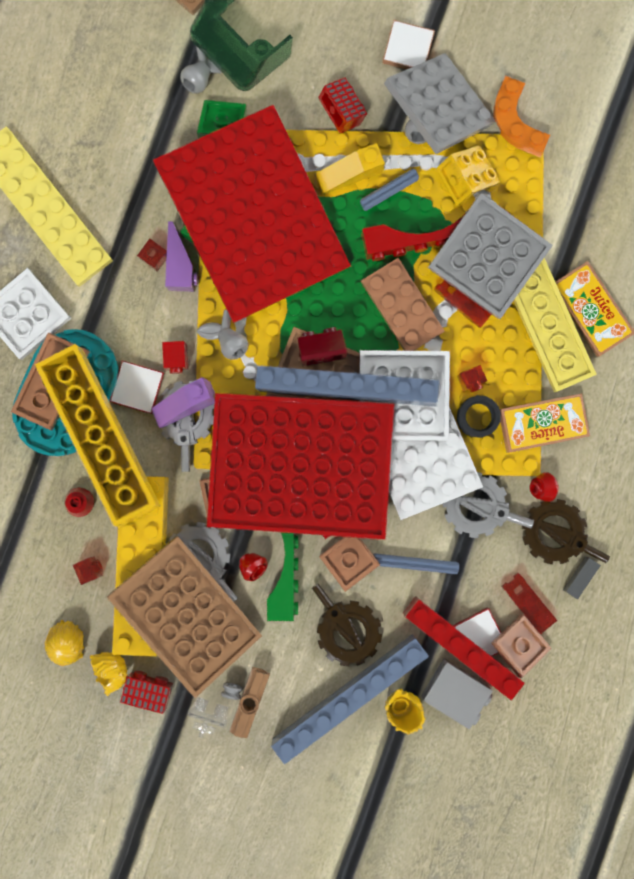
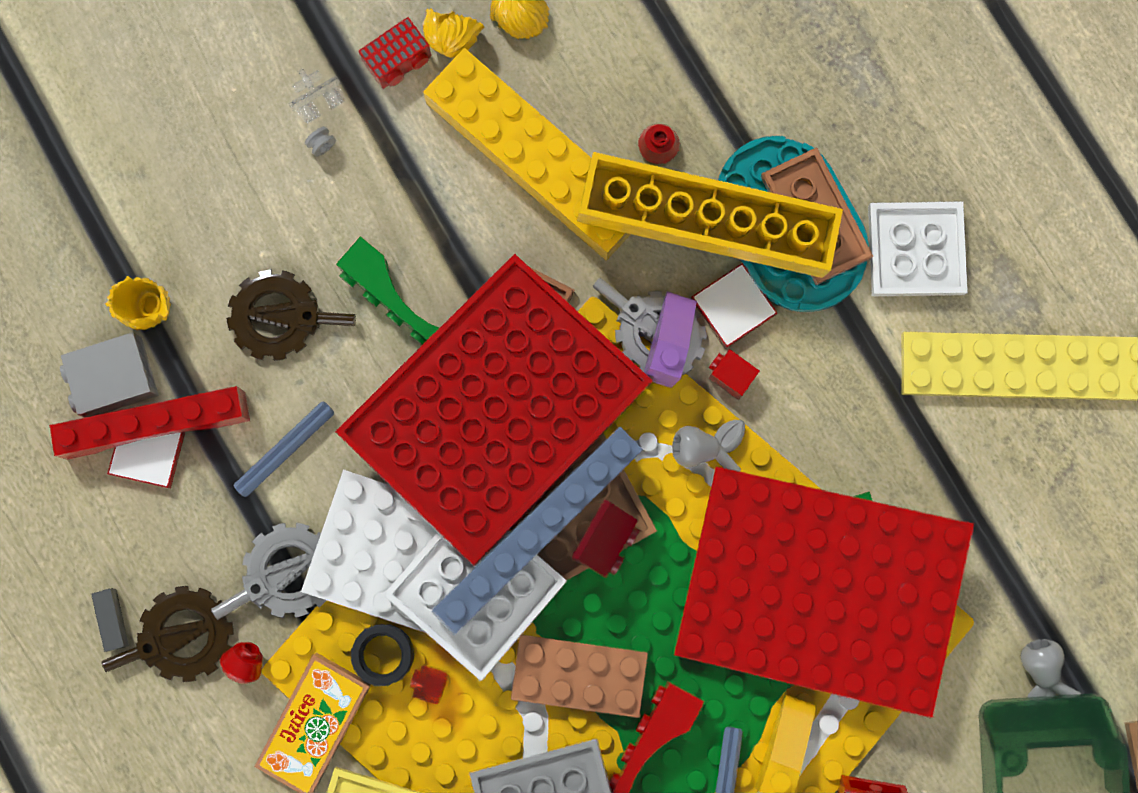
camera: 130 degrees right, 5 degrees down
(88, 570) = (576, 95): clear red plate -> none
(155, 261) = (862, 450): clear red plate -> none
(179, 268) = (832, 461): medium lavender slope -> none
(184, 616) = (439, 153): medium nougat plate -> none
(214, 565) = (469, 222): light grey bar -> none
(218, 115) = (971, 649): green plate -> none
(245, 715) = (284, 135): medium nougat piece -> none
(252, 566) = (432, 270): red cone -> none
(348, 699) = (204, 258): sand blue brick -> none
(349, 561) = (347, 377): nougat tile -> none
(463, 304) = (523, 747): clear red plate -> none
(521, 645) = (97, 488): nougat tile -> none
(529, 603) = (132, 537): clear red plate -> none

